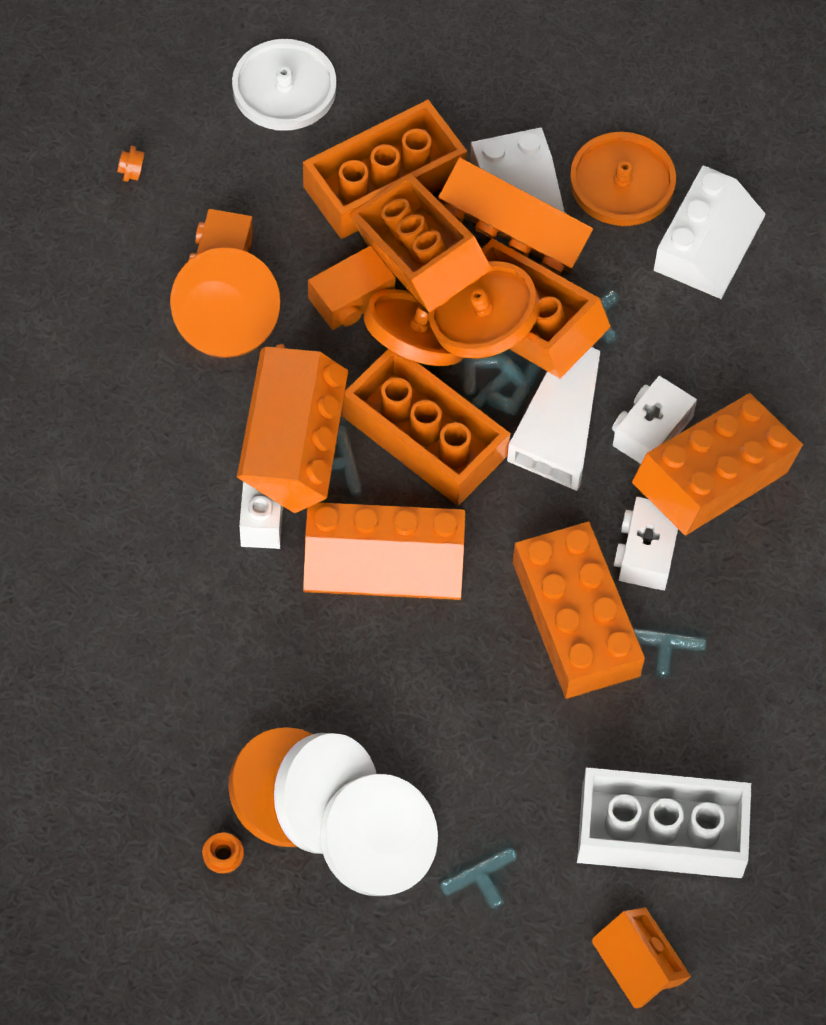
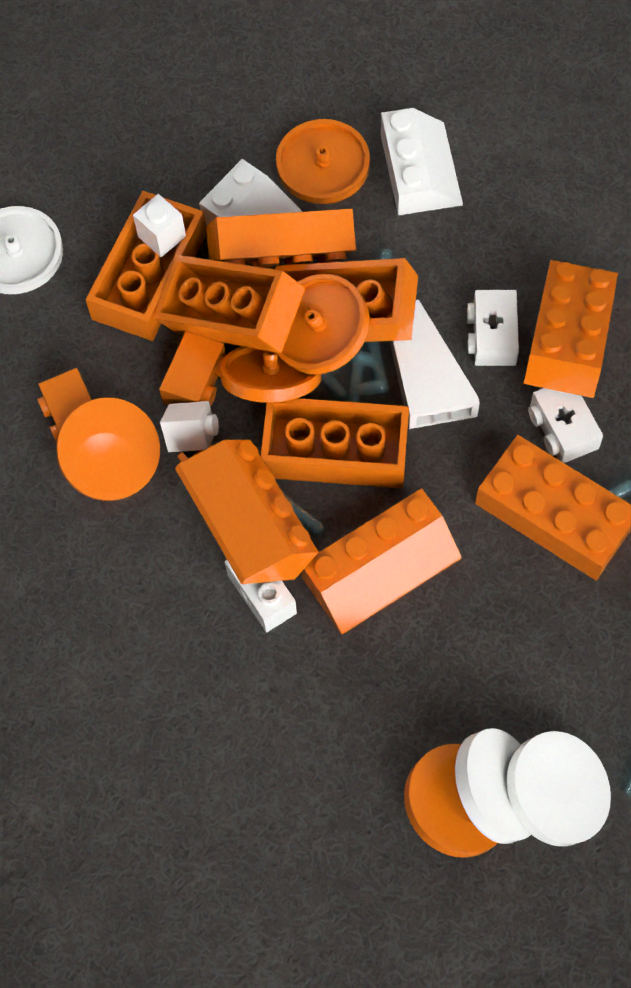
camera: 30 degrees left, 5 degrees up
(219, 841) = (454, 876): orange plate -> none
(308, 327) = (189, 426): none -> white brick
(413, 136) = (159, 225): none -> white brick

